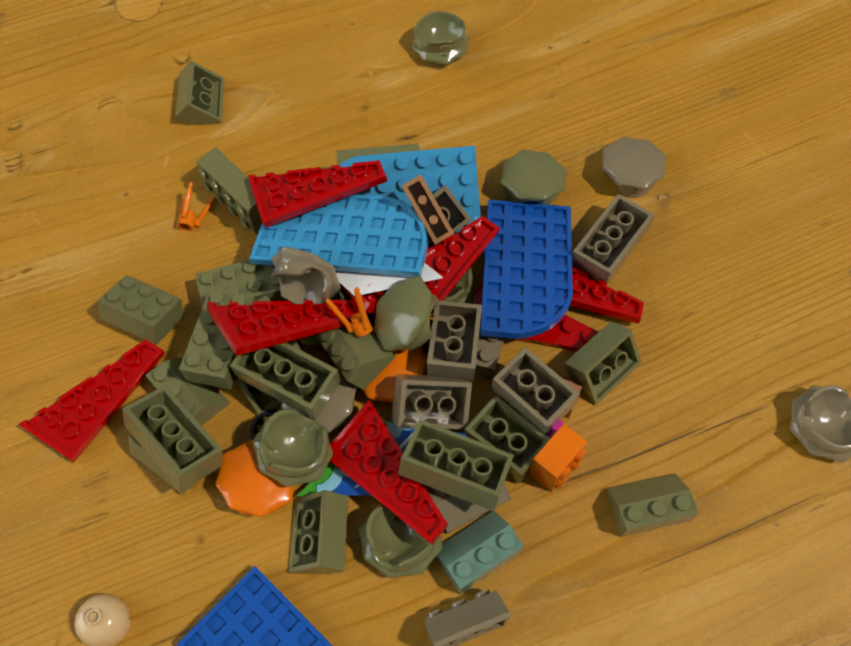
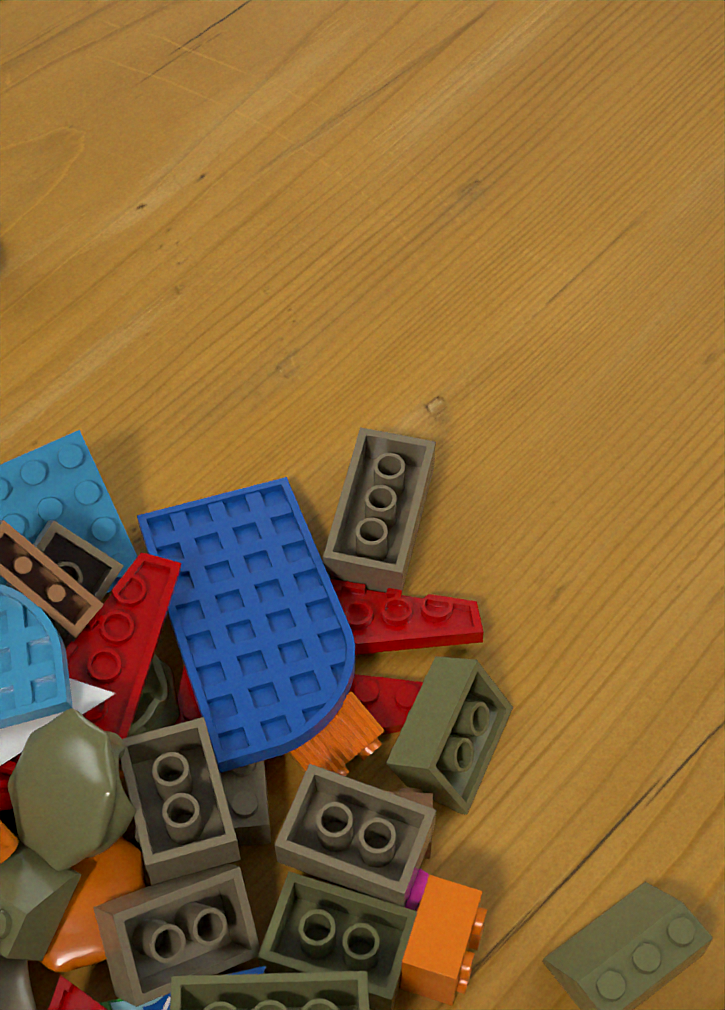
camera: 25 degrees left, 5 degrees down
(532, 177) = (201, 449): olive piece -> none
(547, 343) = (346, 735): none -> orange brick
(633, 165) = (366, 367): dark tan piece -> none

